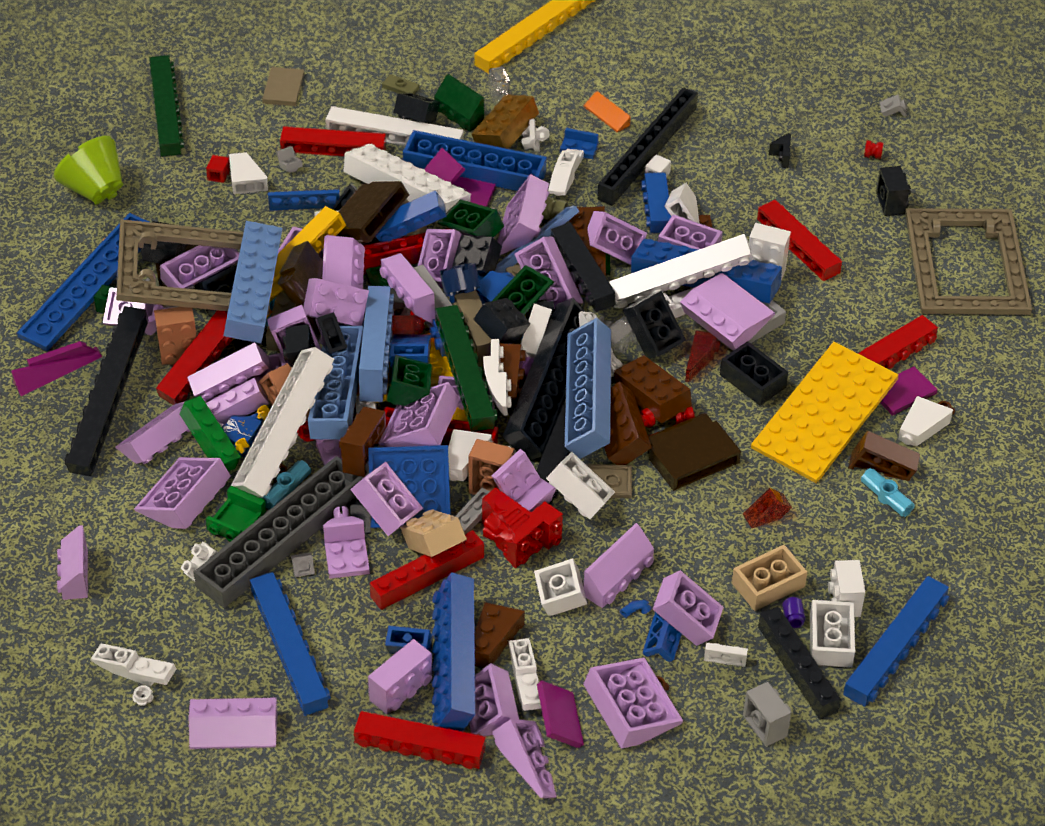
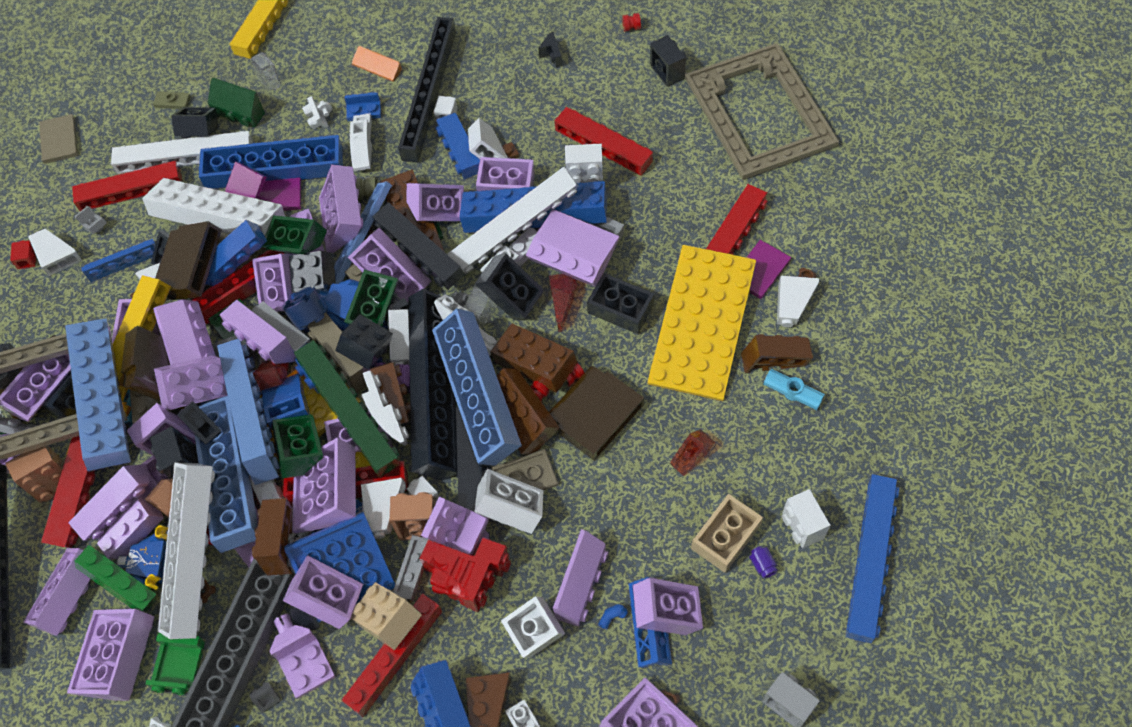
camera: 15 degrees left, 15 degrees up
(286, 483) = (219, 592): medium azure piece -> none
(506, 121) = (286, 109): pearl gold brick -> none
(725, 654) = (726, 637): white plate -> none
(799, 663) = (793, 622): black brick -> none
(832, 633) = (811, 575): white brick -> none

